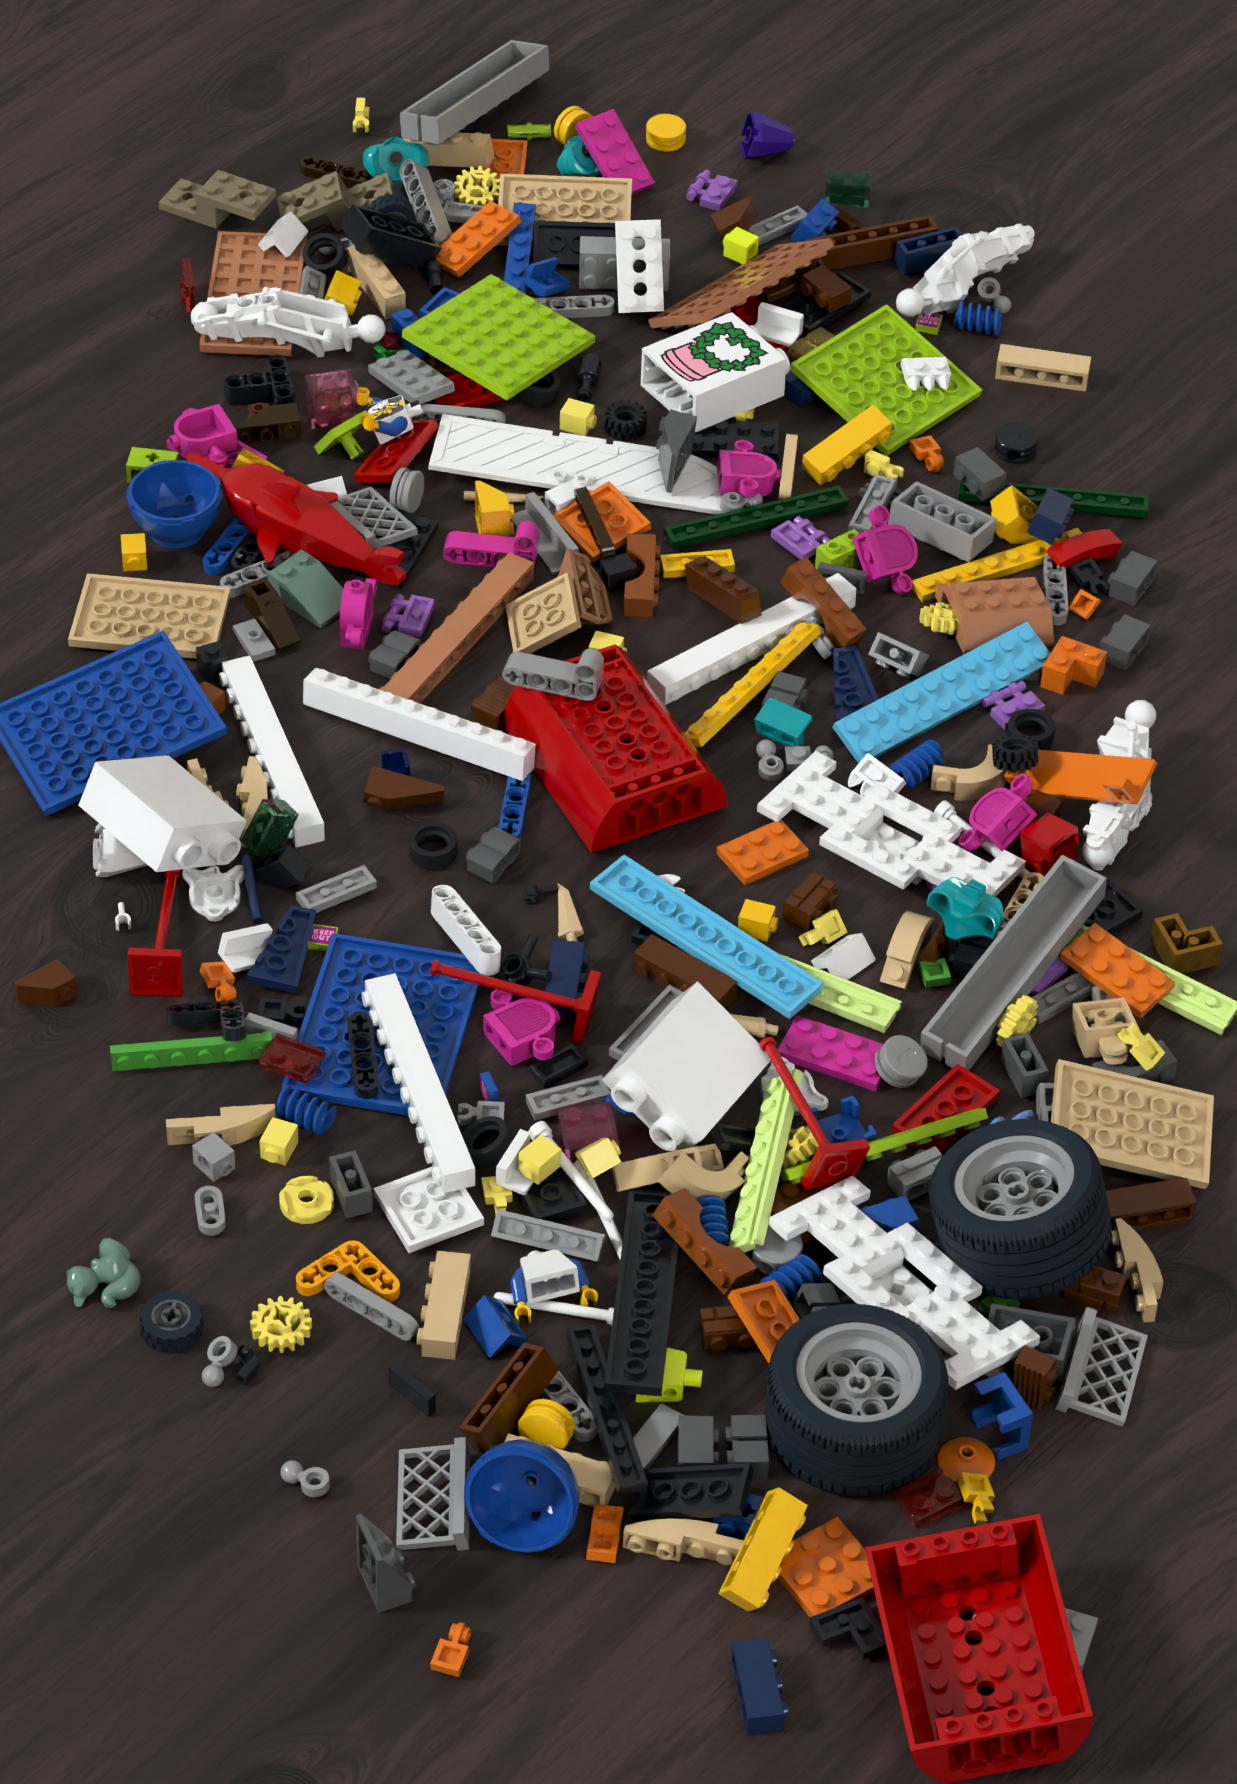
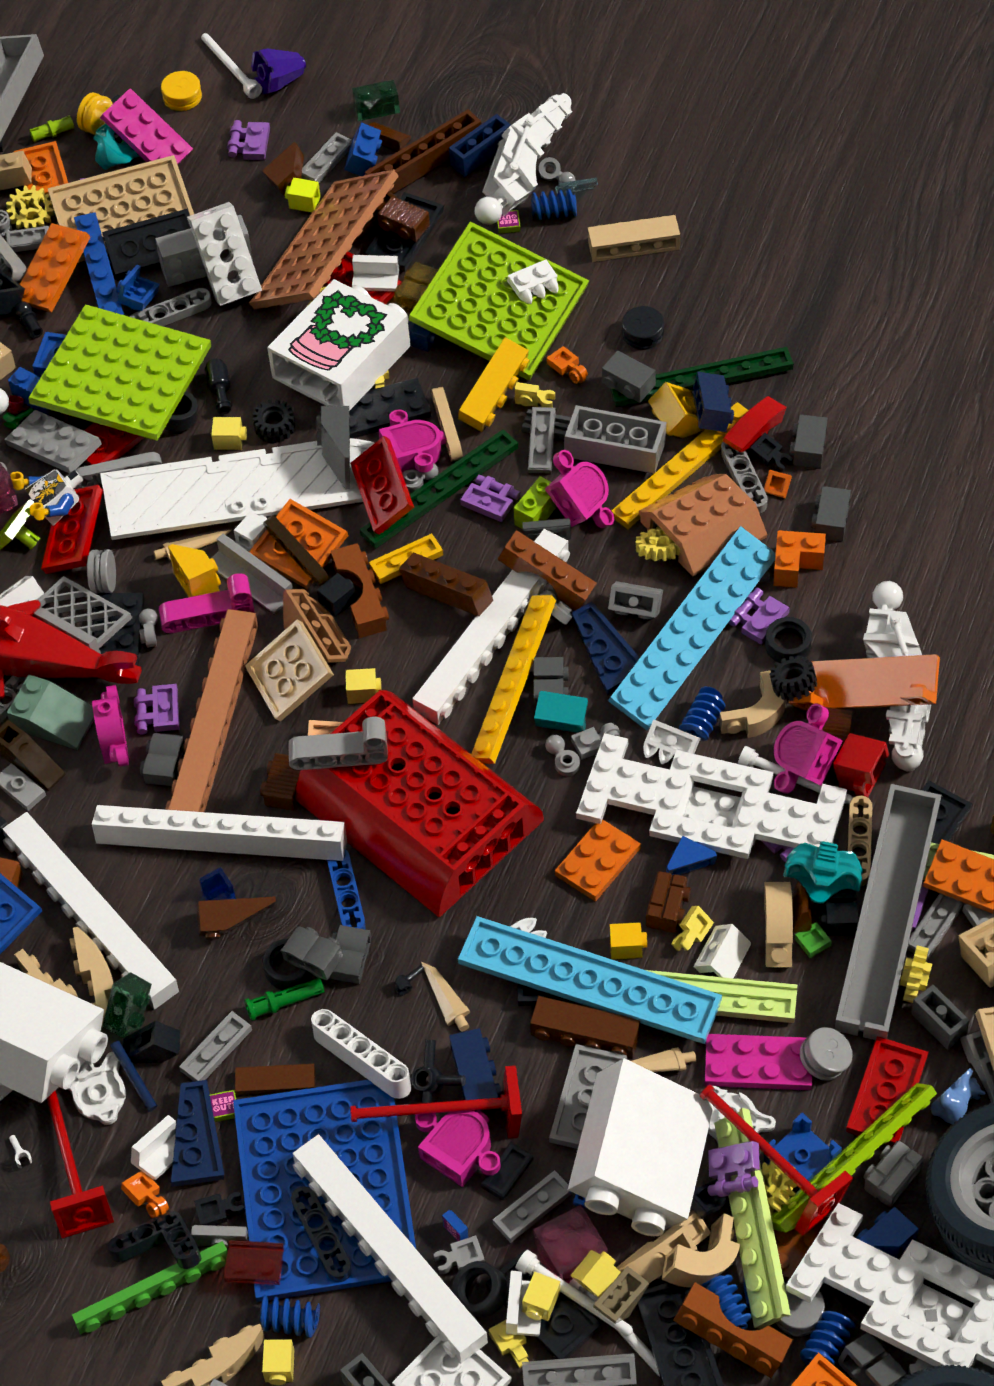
camera: 15 degrees left, 10 degrees up
(378, 929) = (274, 1079): none -> reddish brown tile
(404, 870) = (273, 1001): none -> green pin
(427, 554) = (148, 619): none -> light grey plate
(457, 836) = (312, 953): none -> dark grey brick
(614, 1184) = (622, 1296): none -> dark tan slope
(700, 493) = (382, 485): none -> red plate
(734, 147) = (250, 87): none -> white piece
(764, 1113) = (730, 1161): none -> medium lavender plate
(849, 872) = (690, 857): none -> blue slope
(1009, 308) = (577, 185): none -> clear light blue piece

